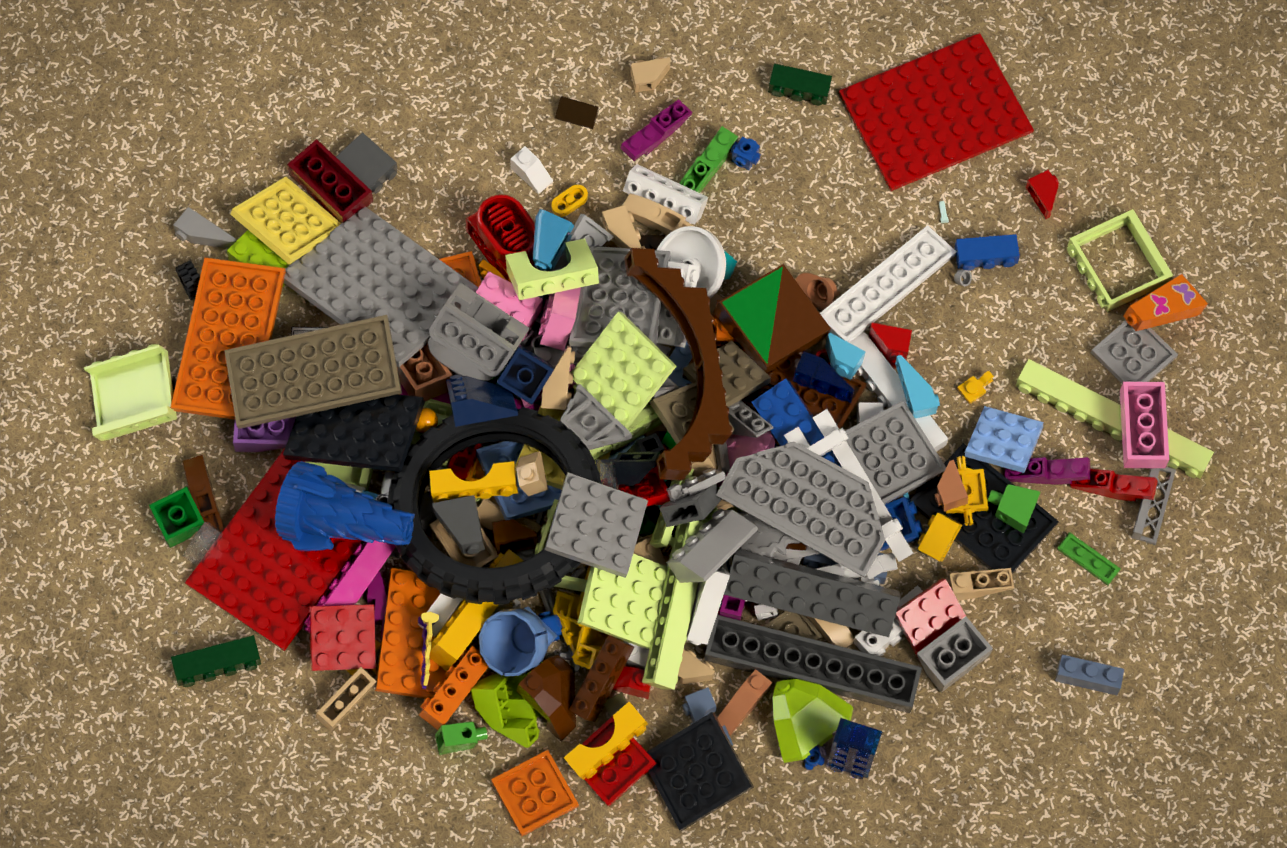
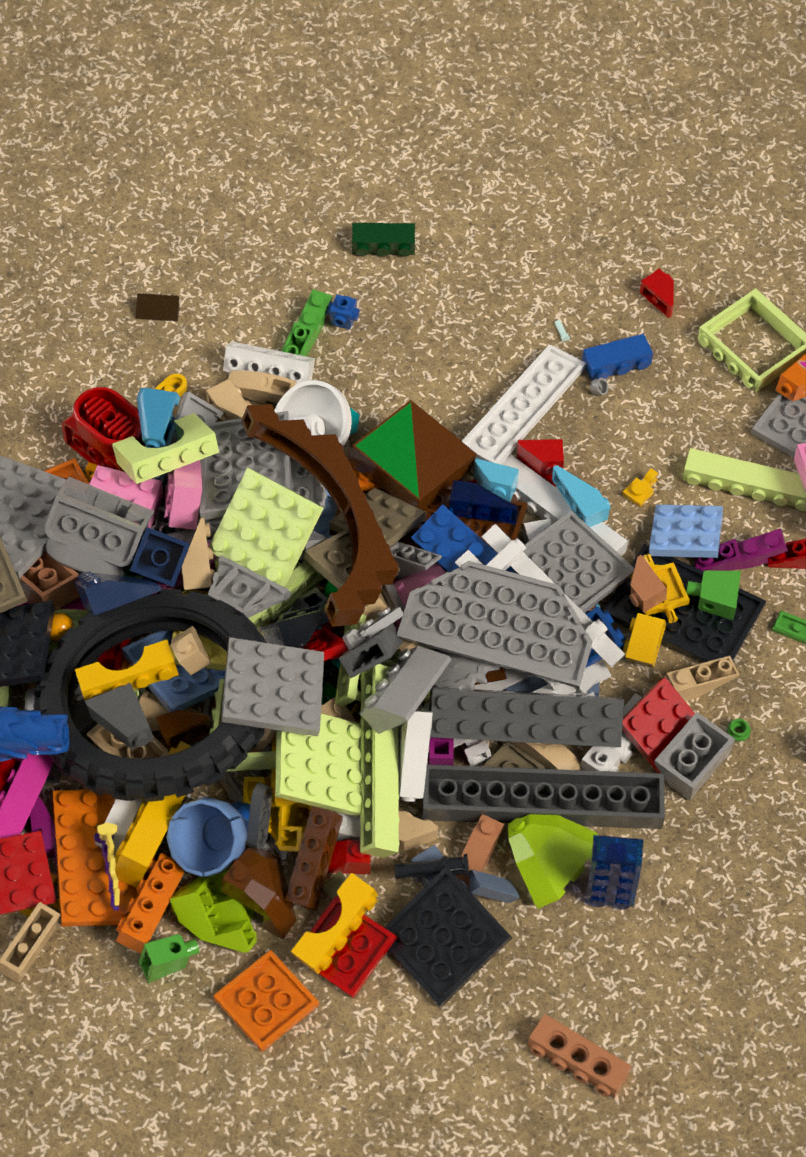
camera: 10 degrees left, 10 degrees down
(530, 169) = (120, 369): white slope -> none
(562, 631) = (259, 816): none -> dark grey beam
(648, 74) = (224, 257): tan slope -> none
(656, 131) = (246, 309): magenta slope -> none
(722, 712) = (457, 865): none -> black pin
(749, 735) = (492, 887): none -> sand blue slope
(818, 289) = (455, 421): nougat piece -> none
(818, 760) = (574, 898): blue plate -> none
(935, 111) = (528, 240): red plate -> none
(1001, 631) = (741, 724): none -> bright green plate

